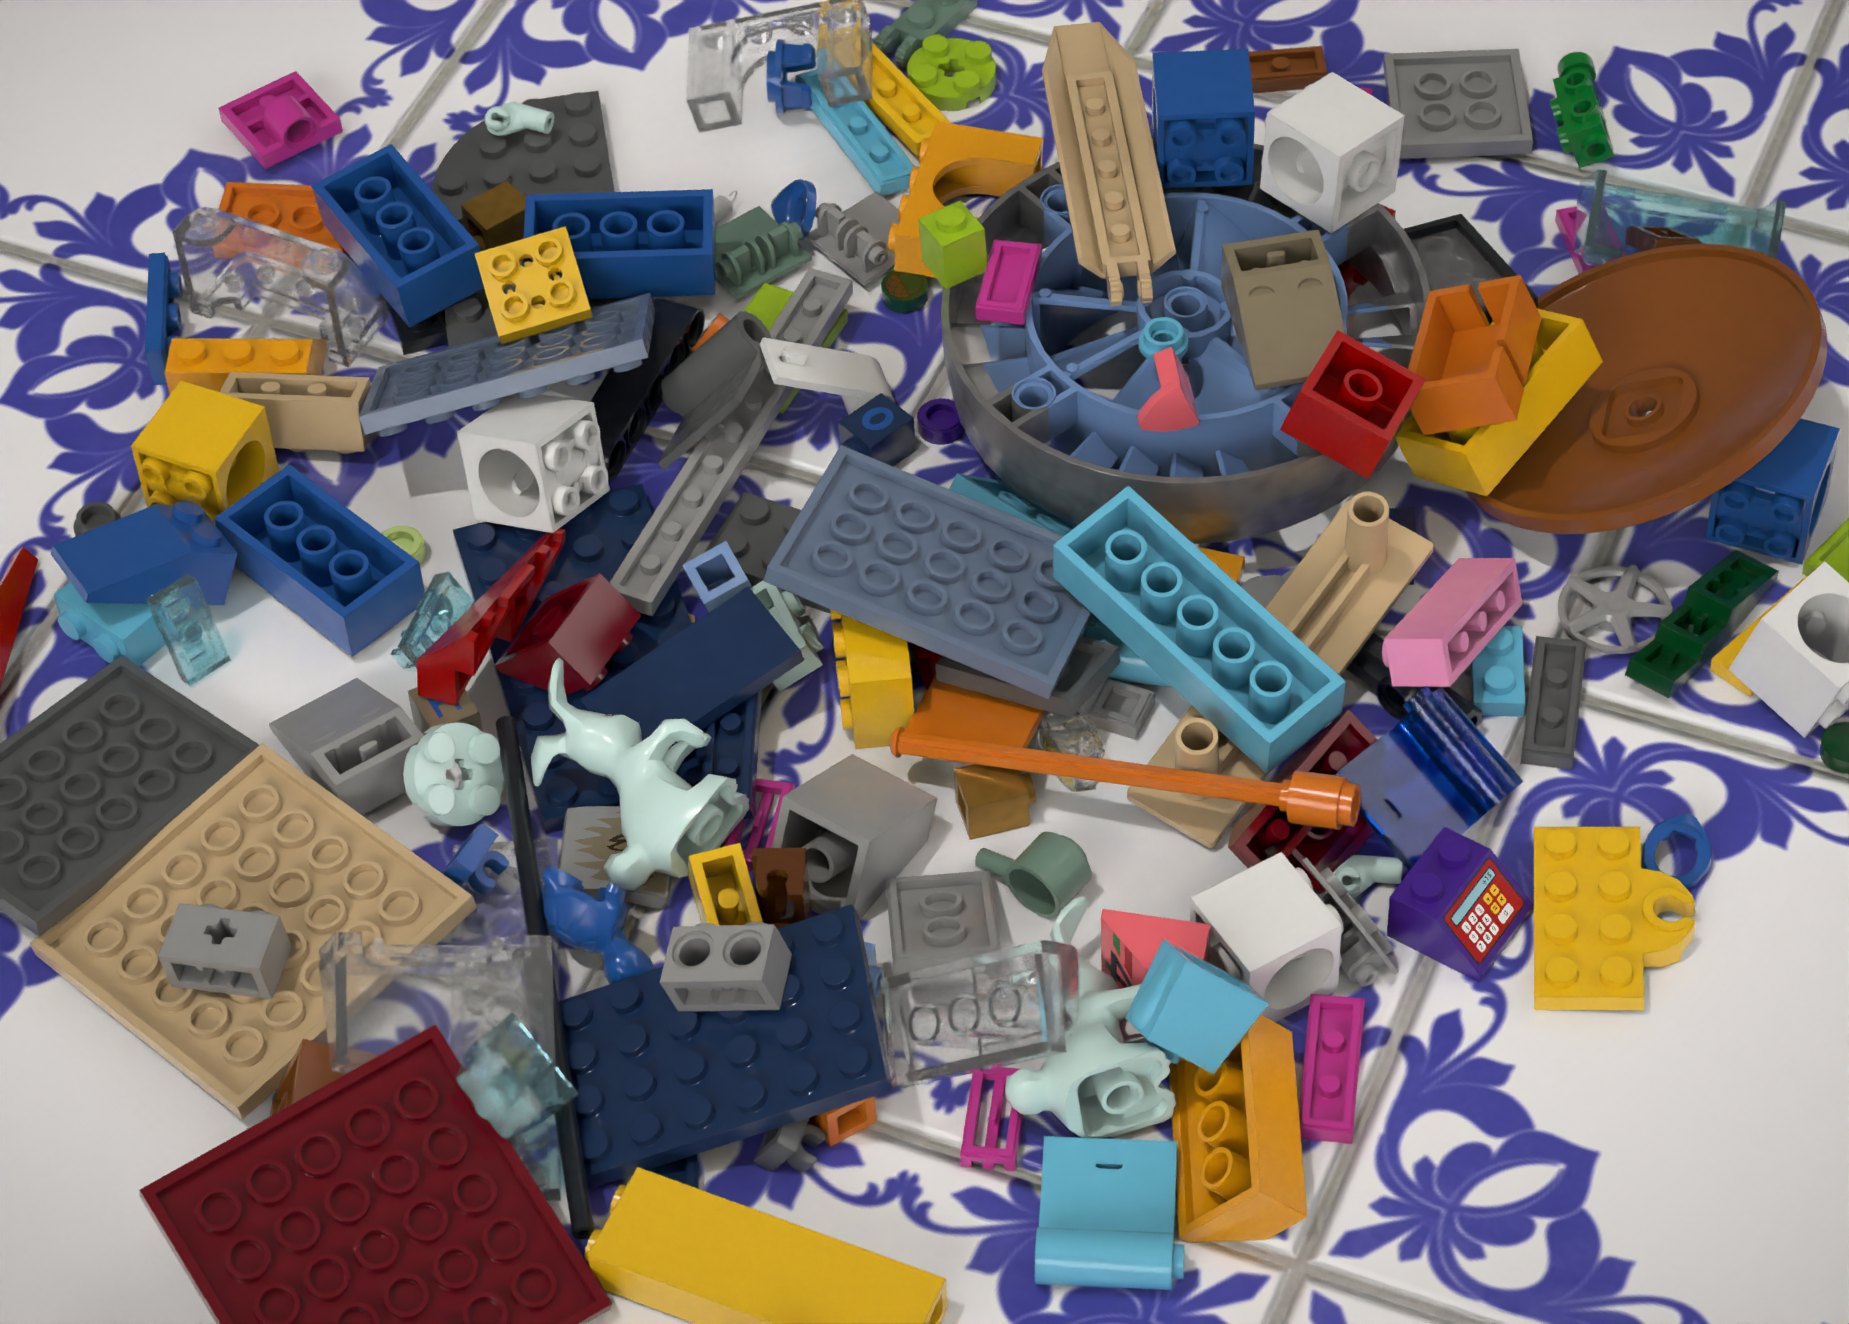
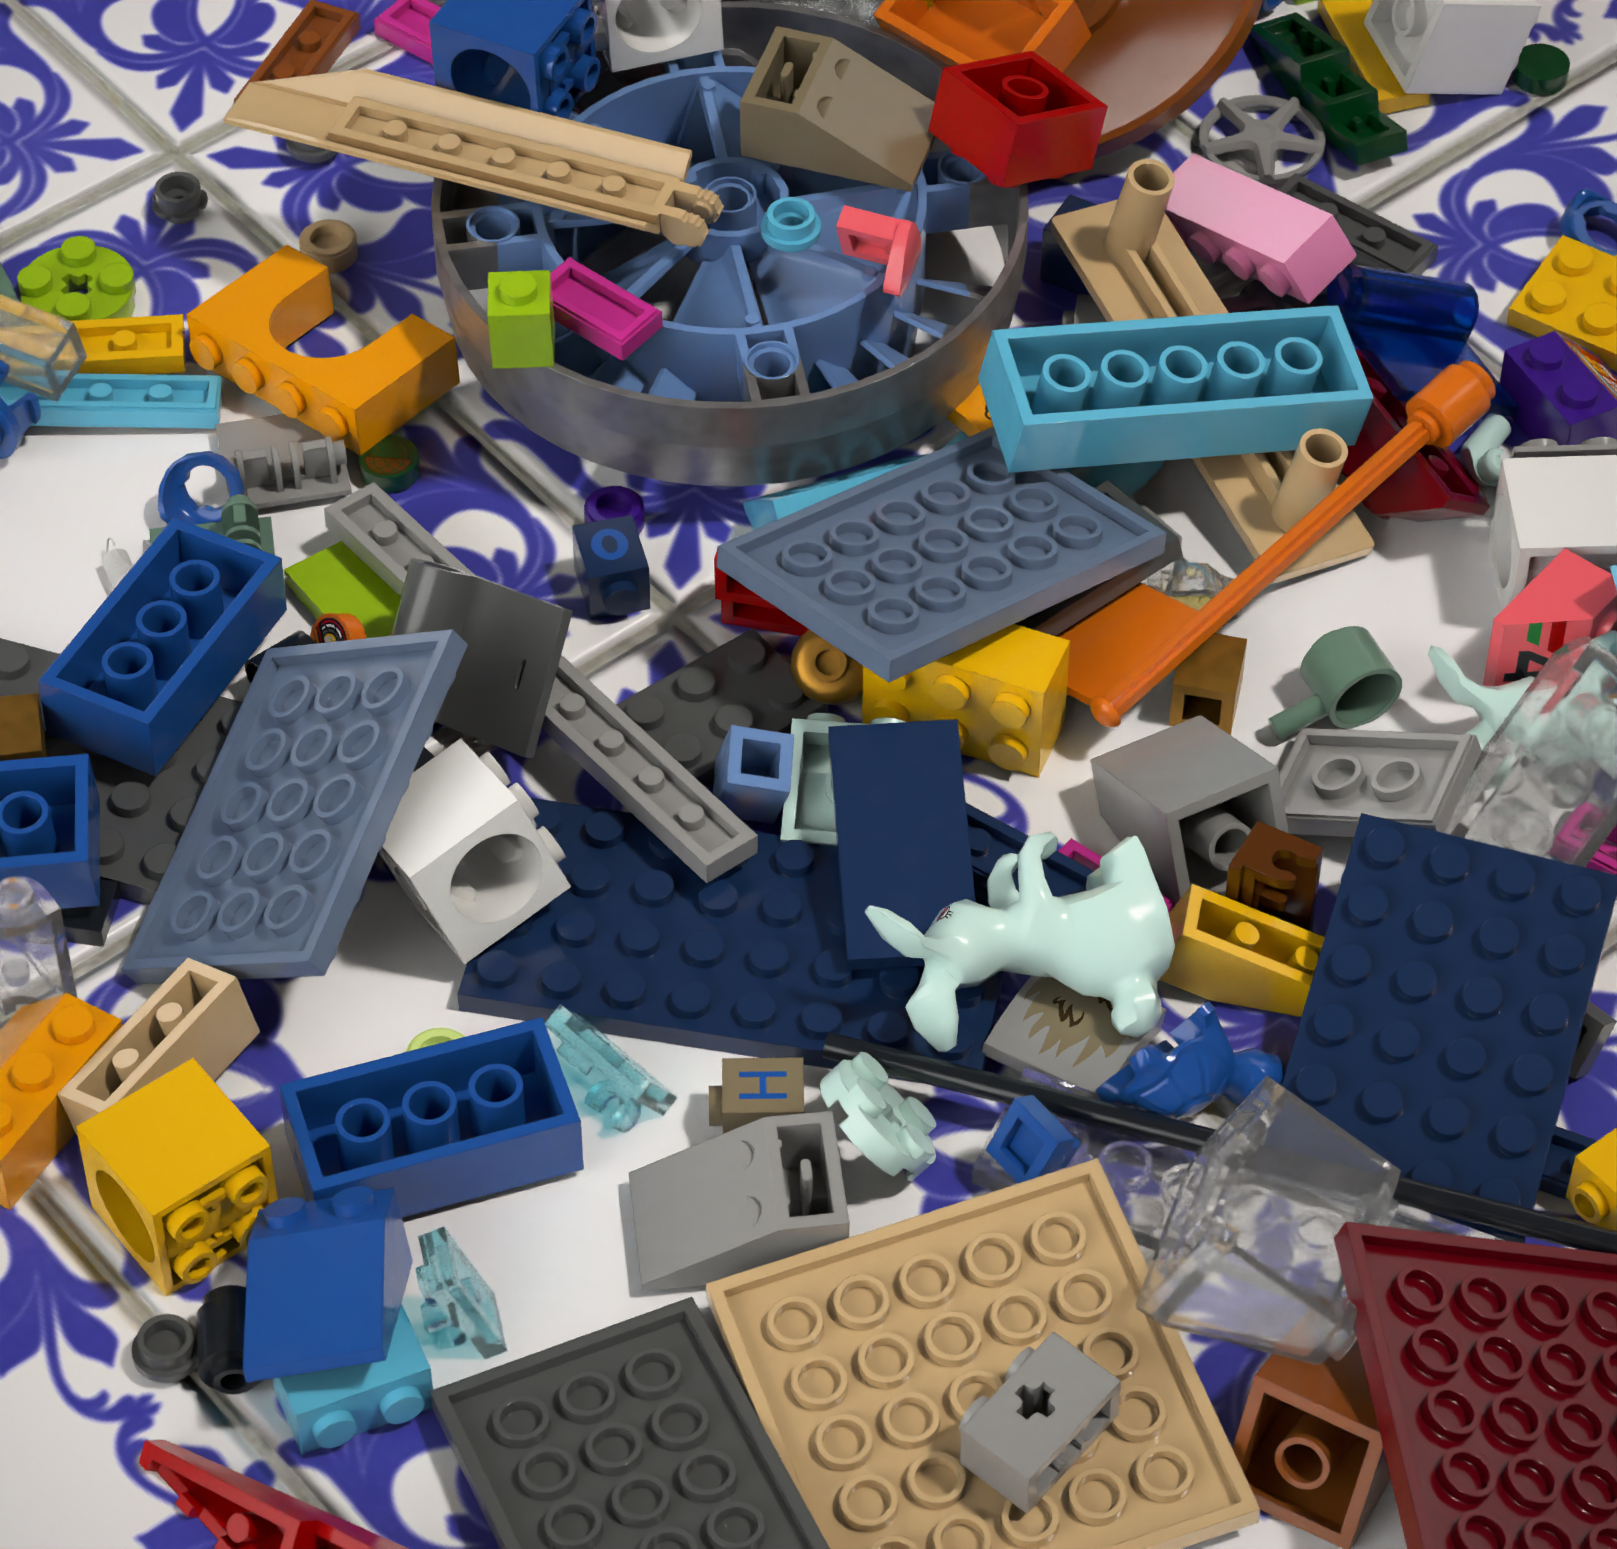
camera: 65 degrees left, 0 degrees up
(498, 613) = (710, 996): red wedge -> none
(513, 1079) = (1464, 1202): clear light blue torso -> none
(537, 300) = (191, 749): yellow plate -> none
(578, 626) = (750, 932): dark red slope -> none
(726, 967) = (1401, 954): light grey brick -> none
(826, 370) = (524, 552): white door -> none

